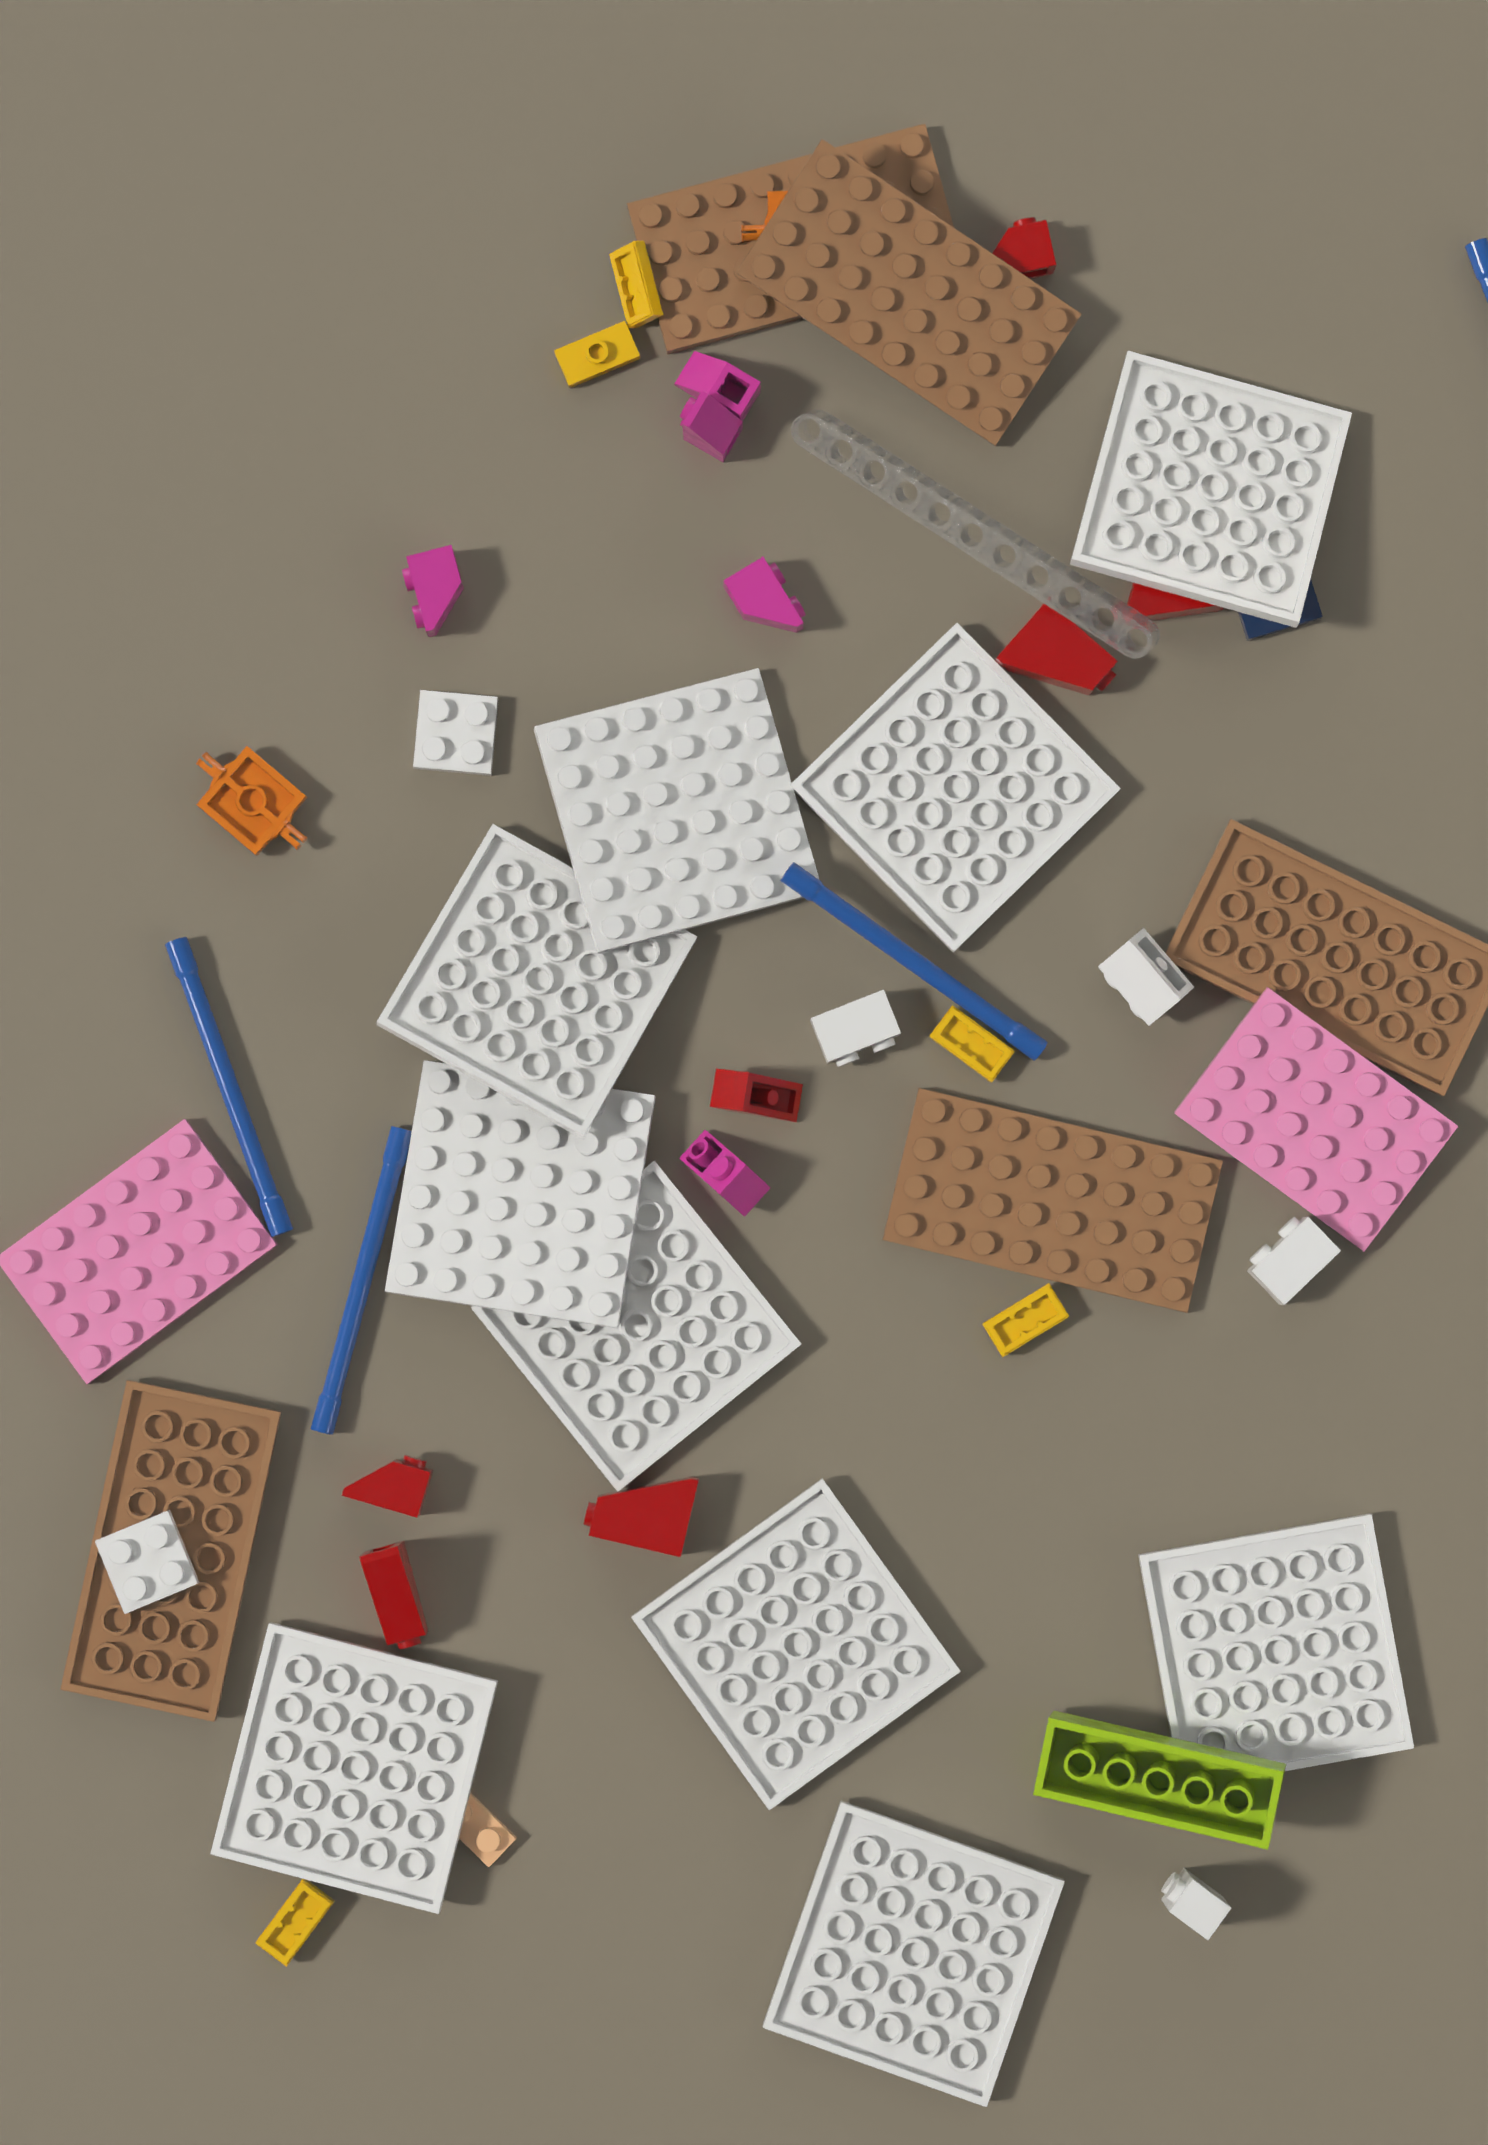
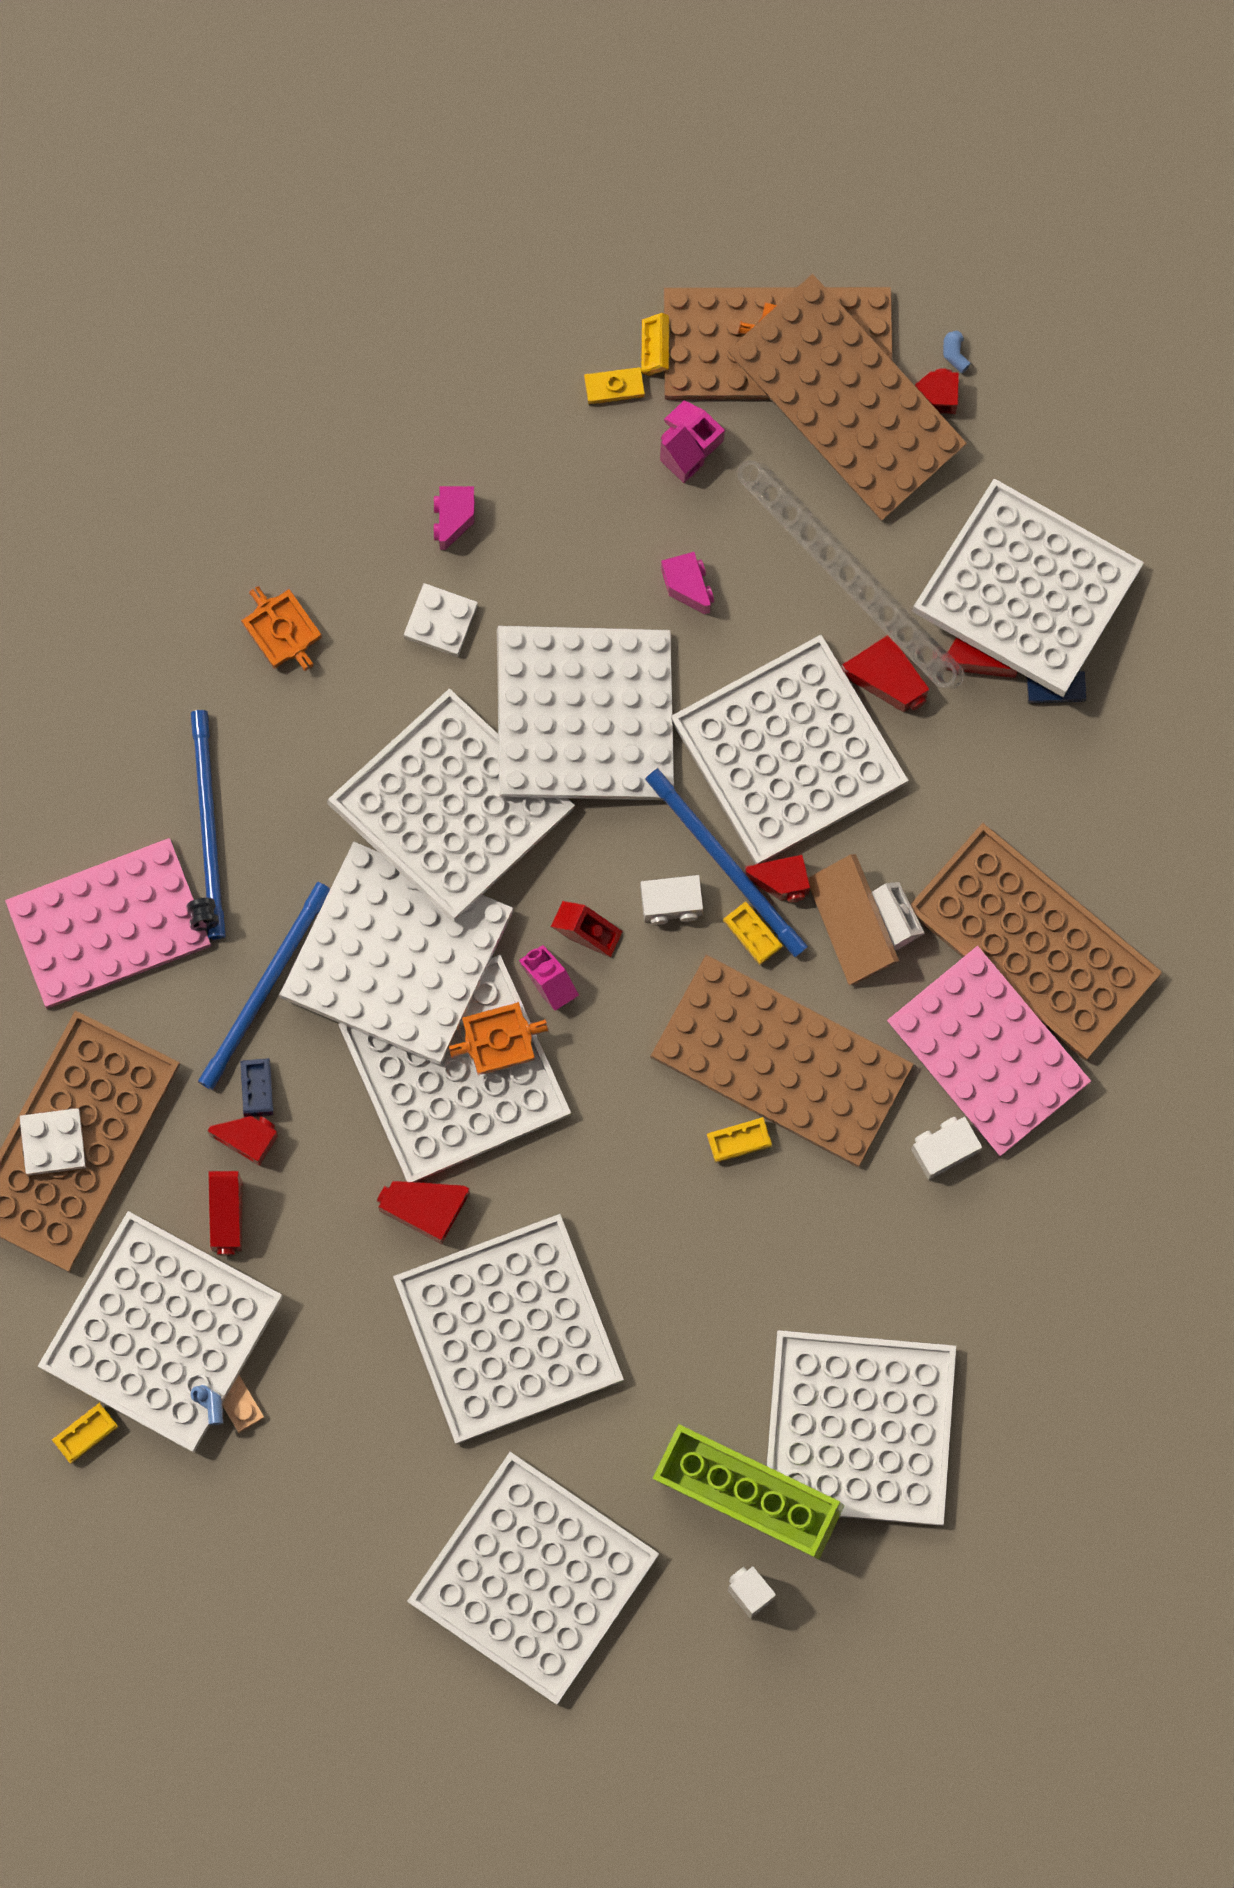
camera: 15 degrees right, 10 degrees down
(255, 1213) = (202, 914): none -> black wheel
(389, 1418) = (256, 1087): none -> dark blue plate
(443, 1845) = (211, 1401): none -> medium blue arm
(682, 1275) = (498, 1038): none -> orange plate
(991, 962) = (781, 878): none -> red slope
(1028, 190) = (952, 349): none -> medium blue arm
(1097, 994) = (852, 919): none -> medium nougat tile

